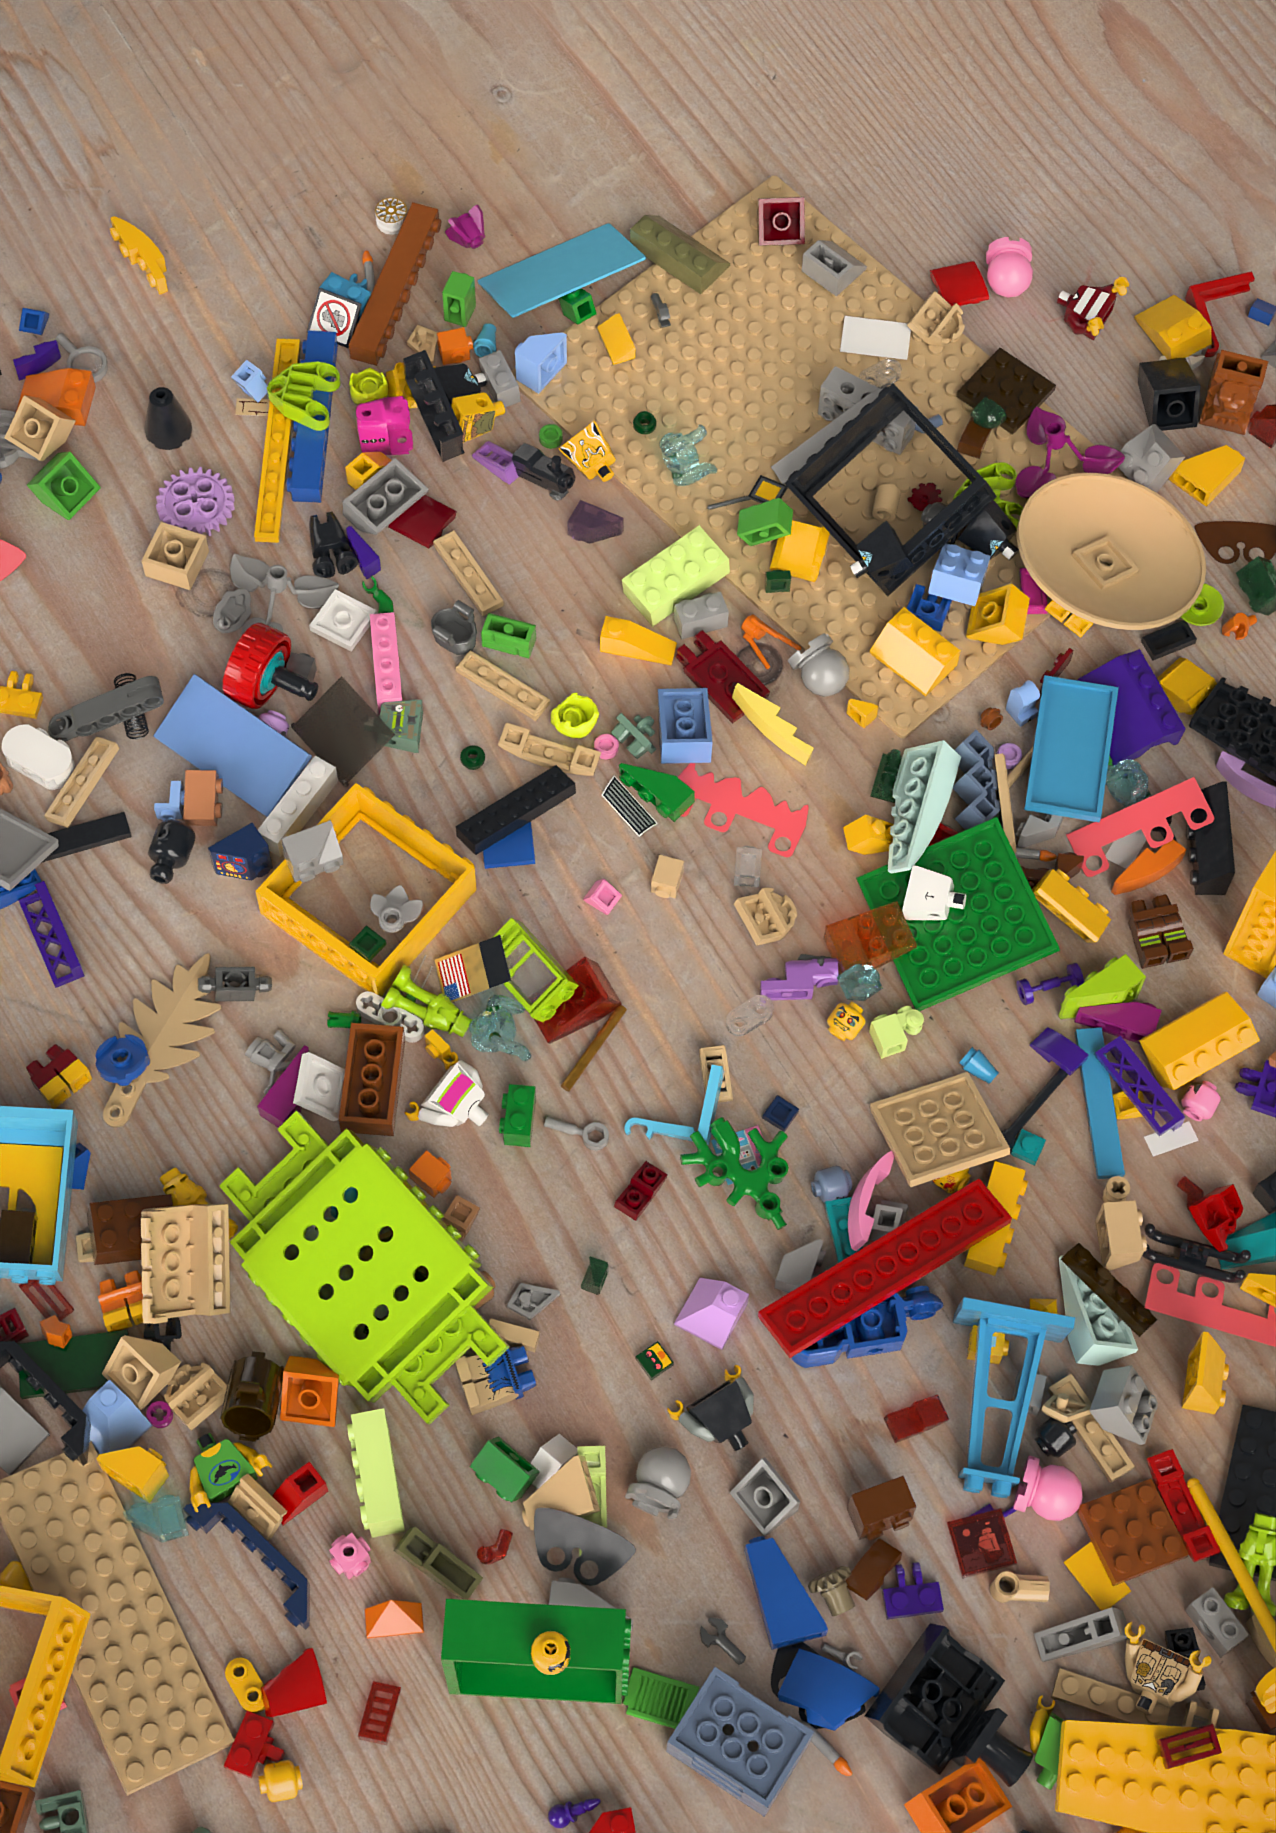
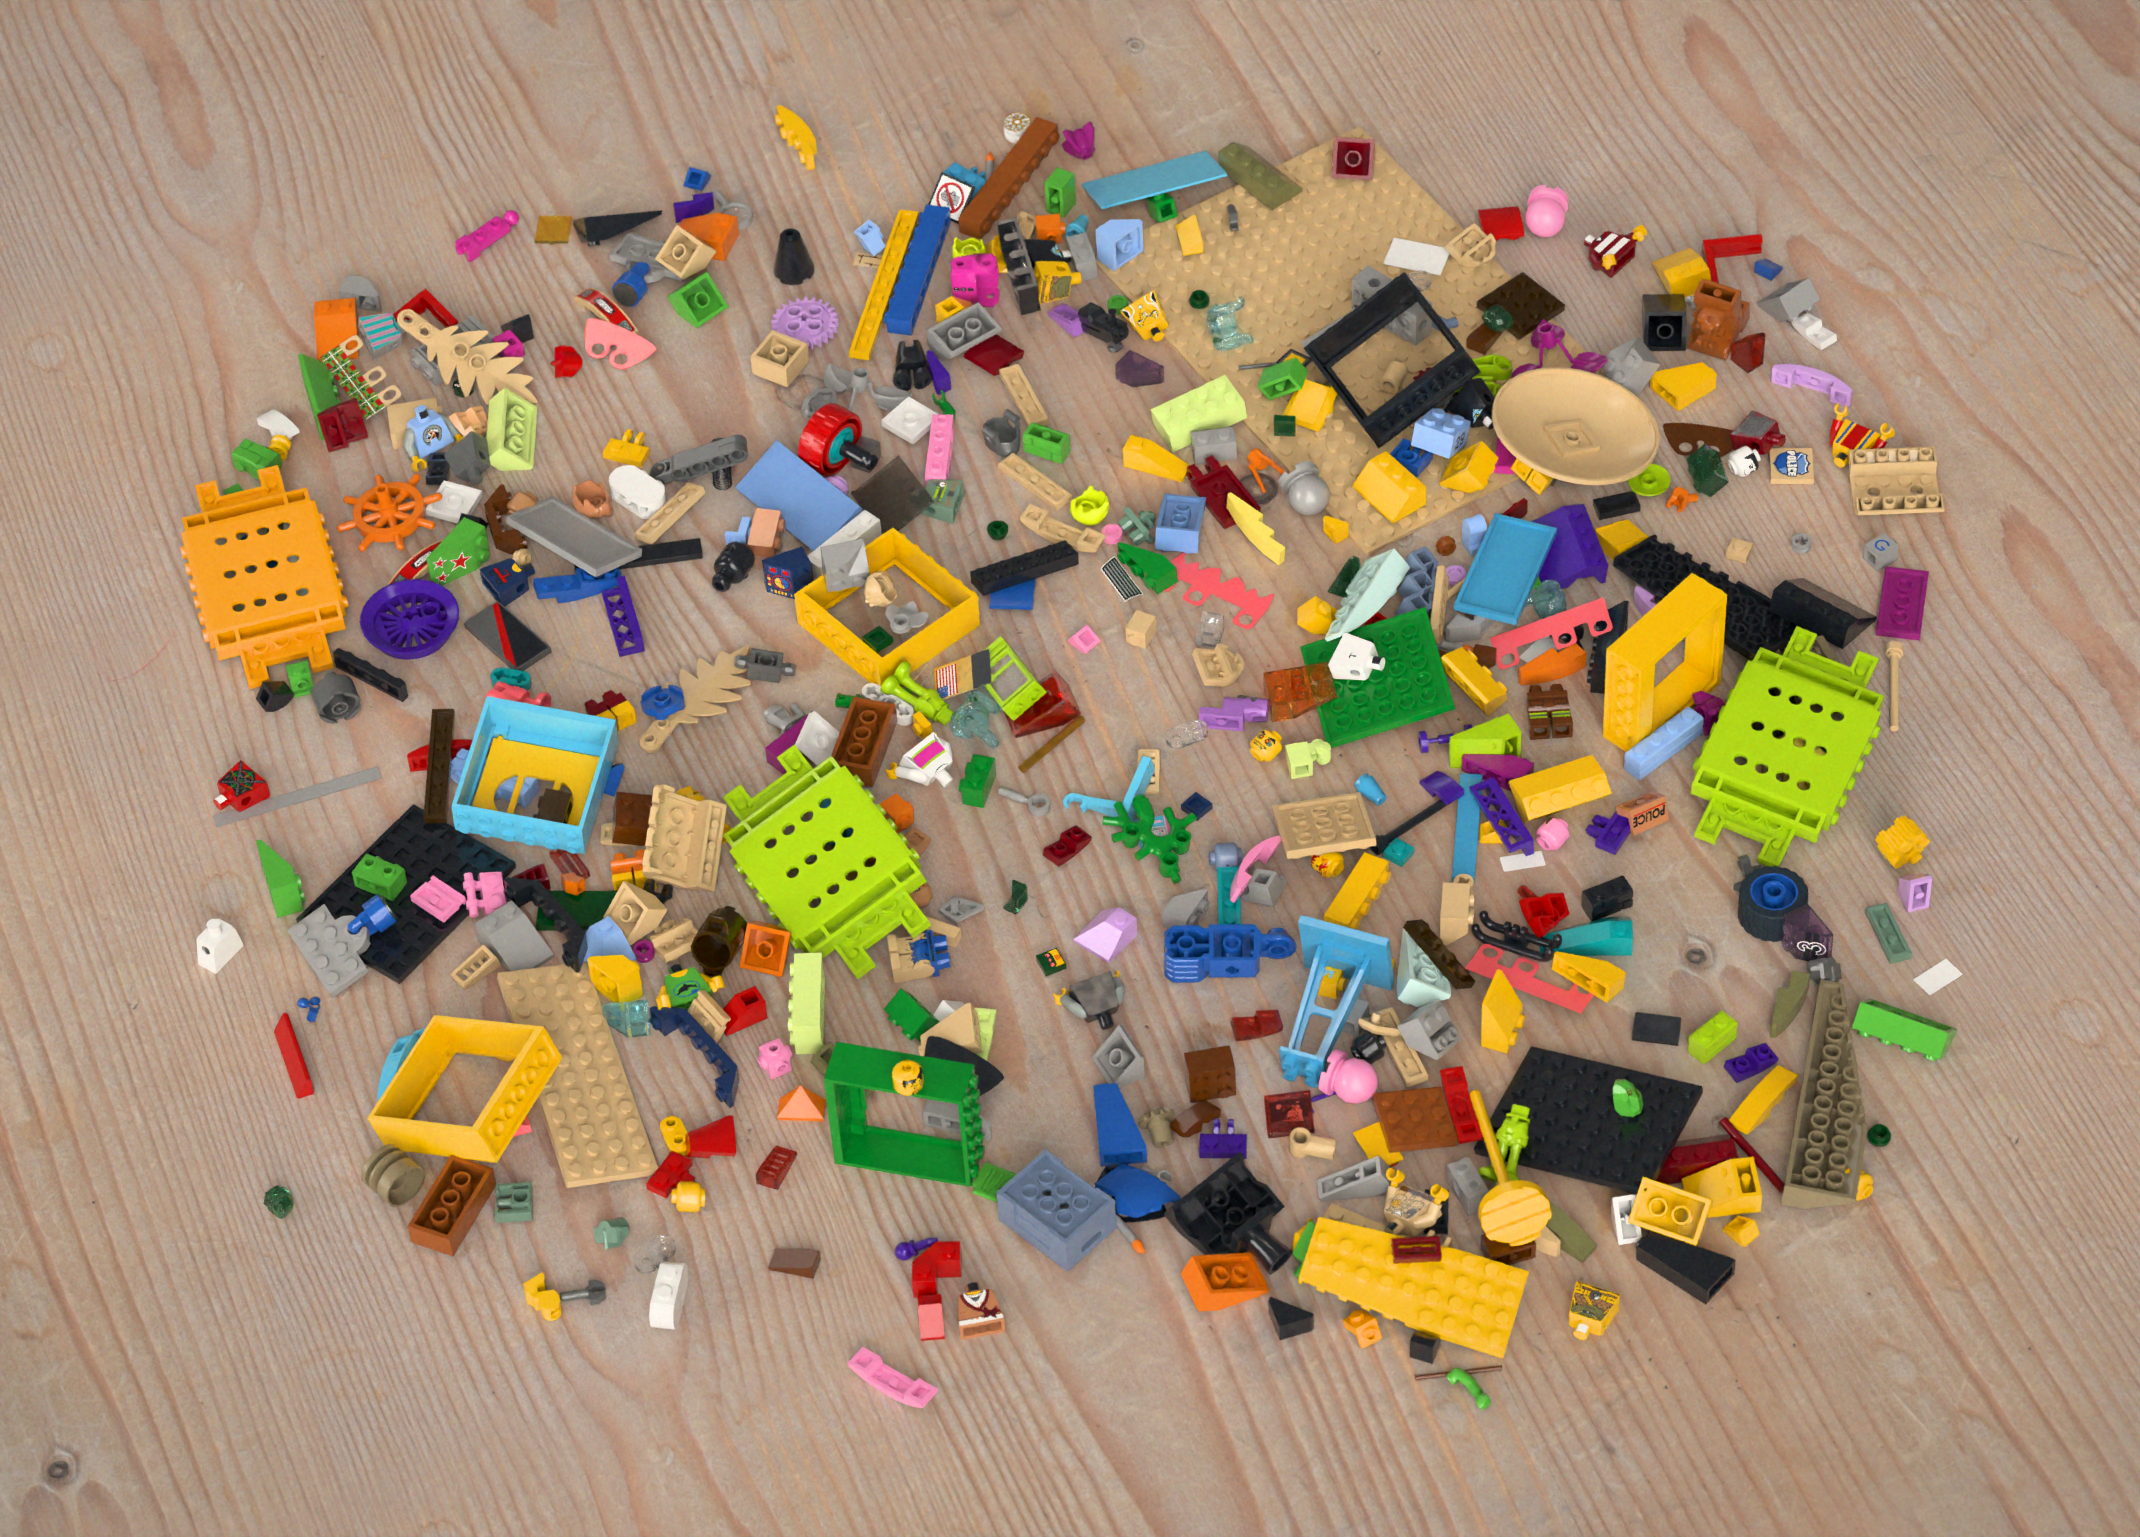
camera: 15 degrees right, 15 degrees down
(297, 389) = (904, 245): lime connector -> none
(359, 877) = (879, 589): none -> tan hair
(661, 1479) = (1033, 1037): light grey tile -> none
(721, 1640) = (1061, 1153): dark grey bar -> none
(831, 266) = (1389, 196): light grey slope -> none
(860, 982) = (1283, 718): clear light blue brick -> none
(881, 554) = (1370, 403): black torso -> none
(884, 1267) = (1250, 906): red plate -> none

